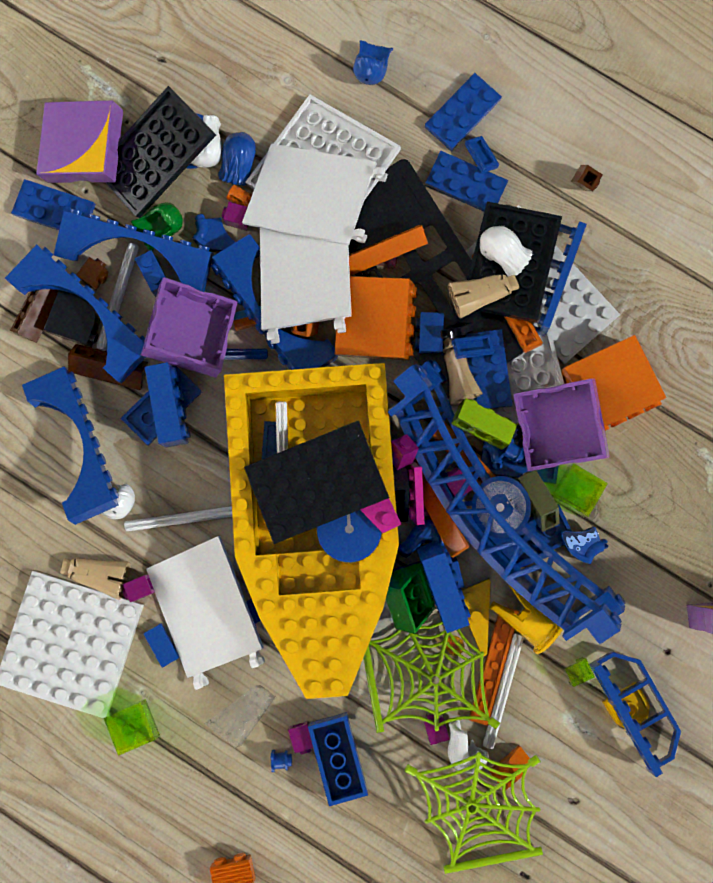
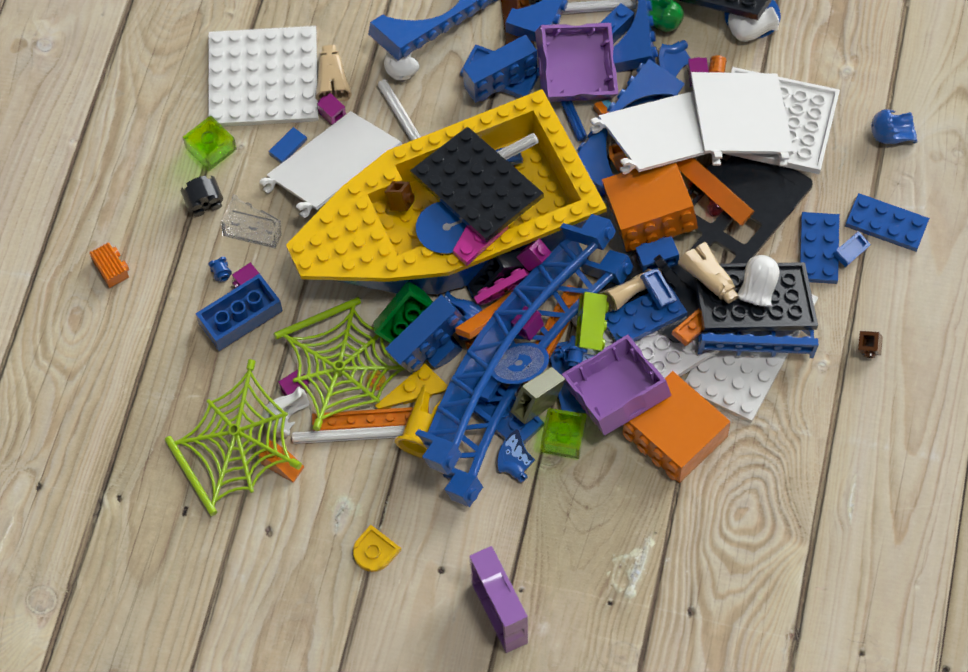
camera: 70 degrees right, 20 degrees down
(190, 754) = (202, 195): none -> black brick
(237, 158) = (753, 51): blue piece -> none
(292, 562) = (399, 196): none -> reddish brown brick
(579, 672) = (391, 490): clear neon green panel -> none
(631, 725) = (358, 542): blue plate -> none

